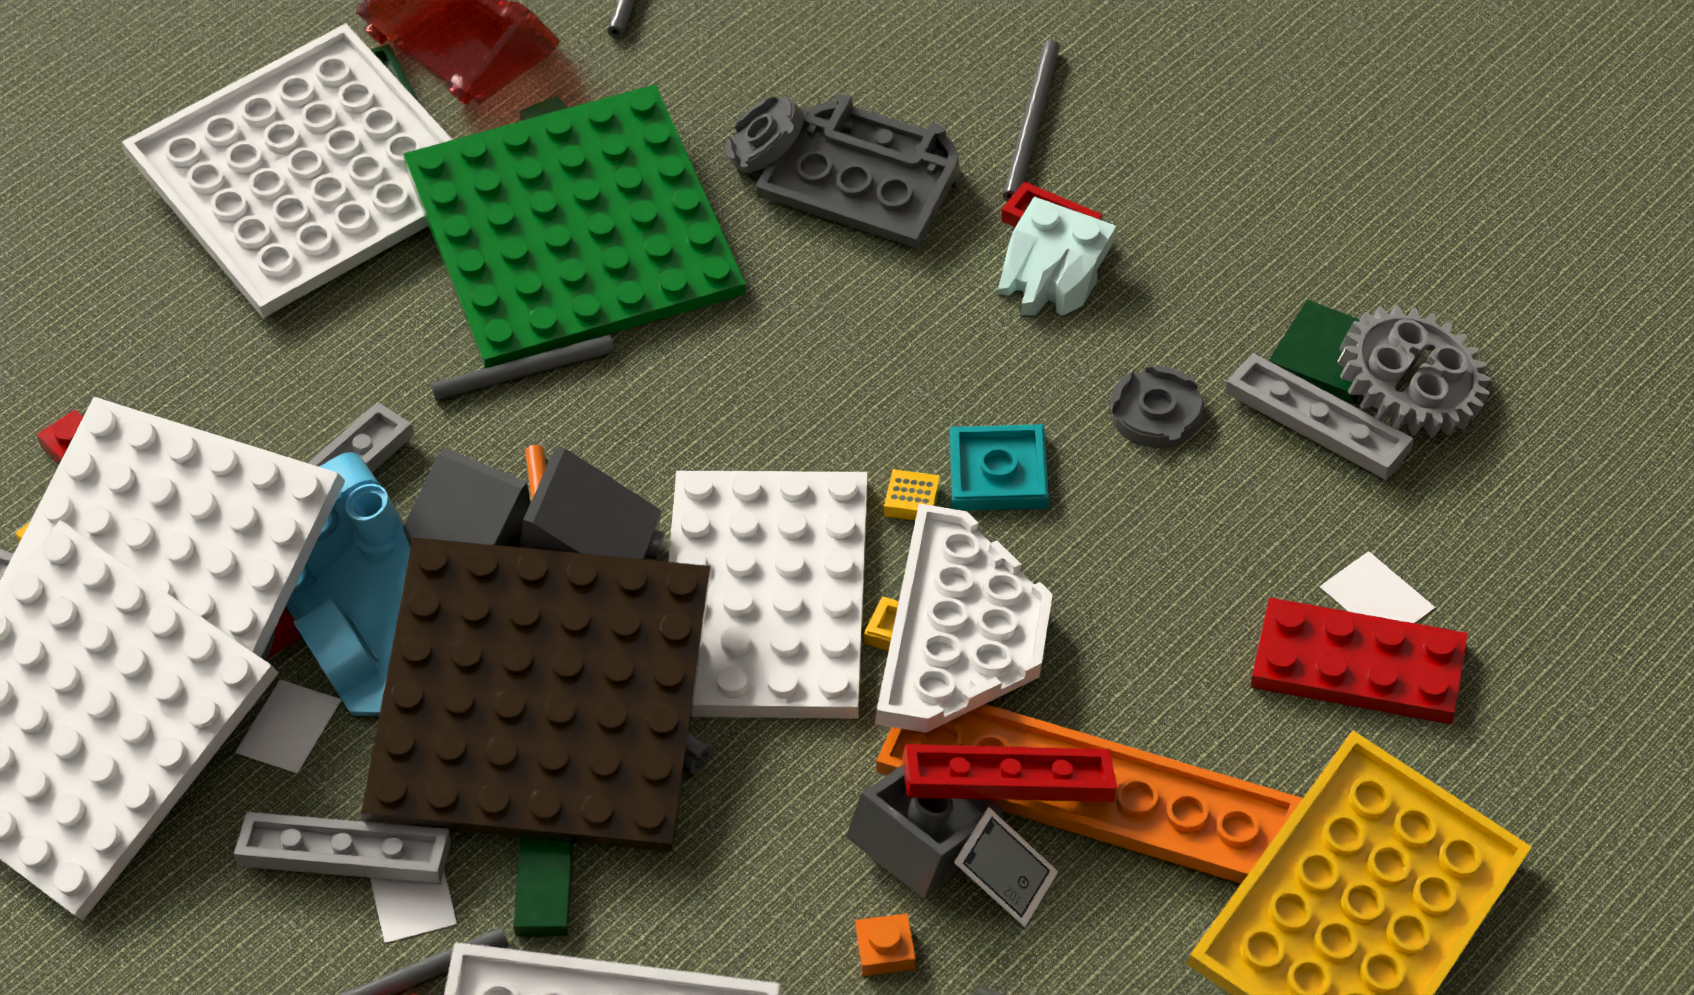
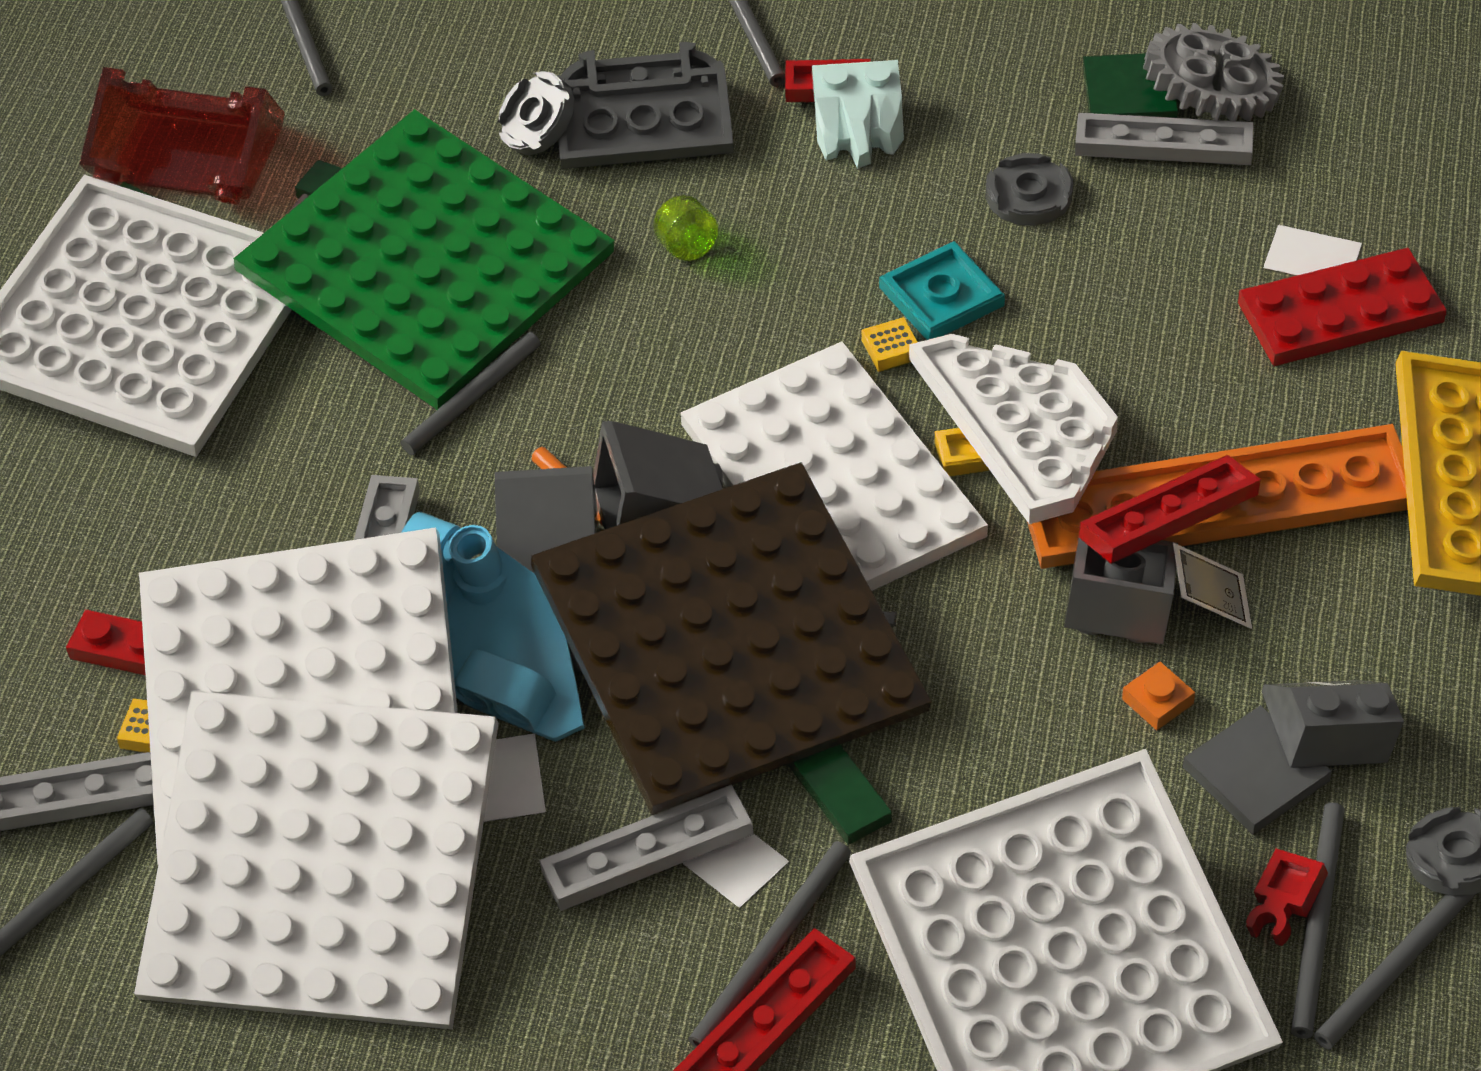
camera: 30 degrees left, 0 degrees up
(812, 296) = (685, 227): none -> clear neon green head

